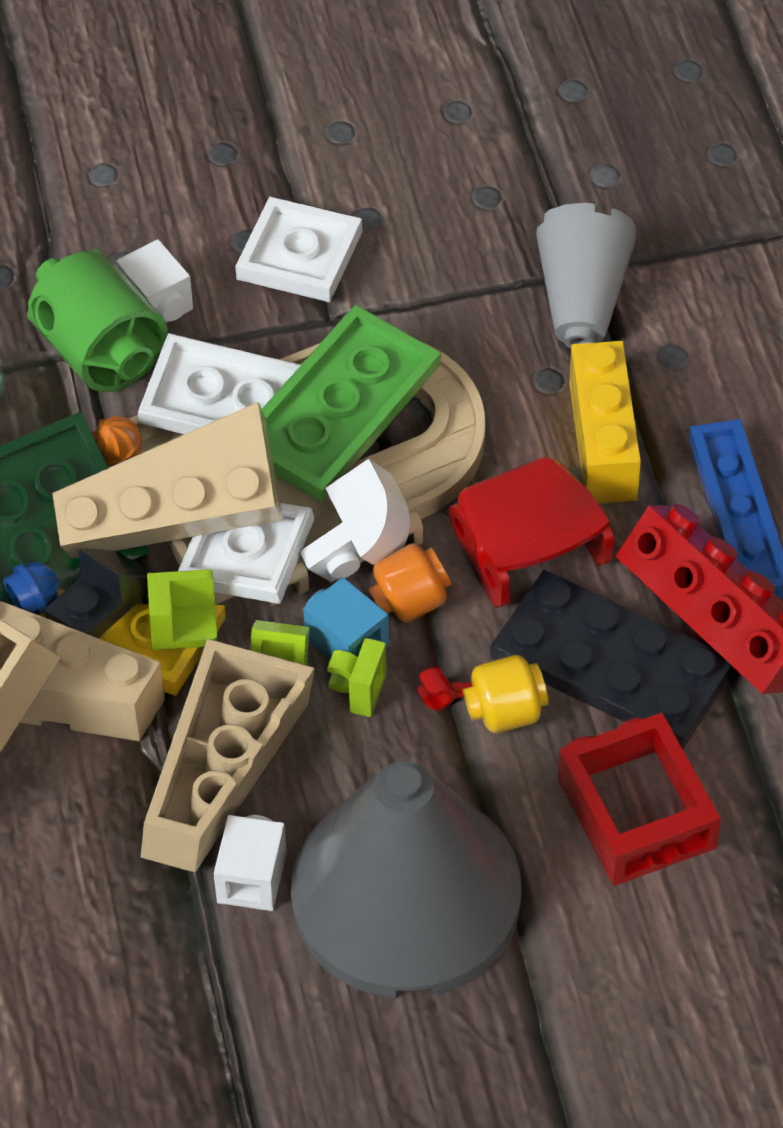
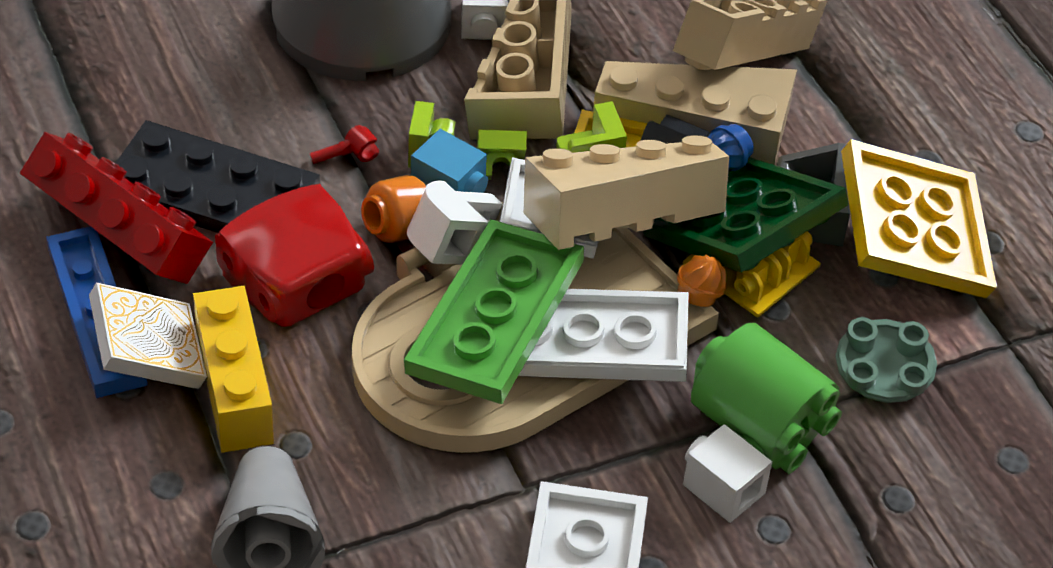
camera: 165 degrees right, 5 degrees down
(506, 694) = (299, 126): yellow head -> none
(655, 843) = (170, 40): red window -> none
(690, 453) = (147, 336): none -> tile

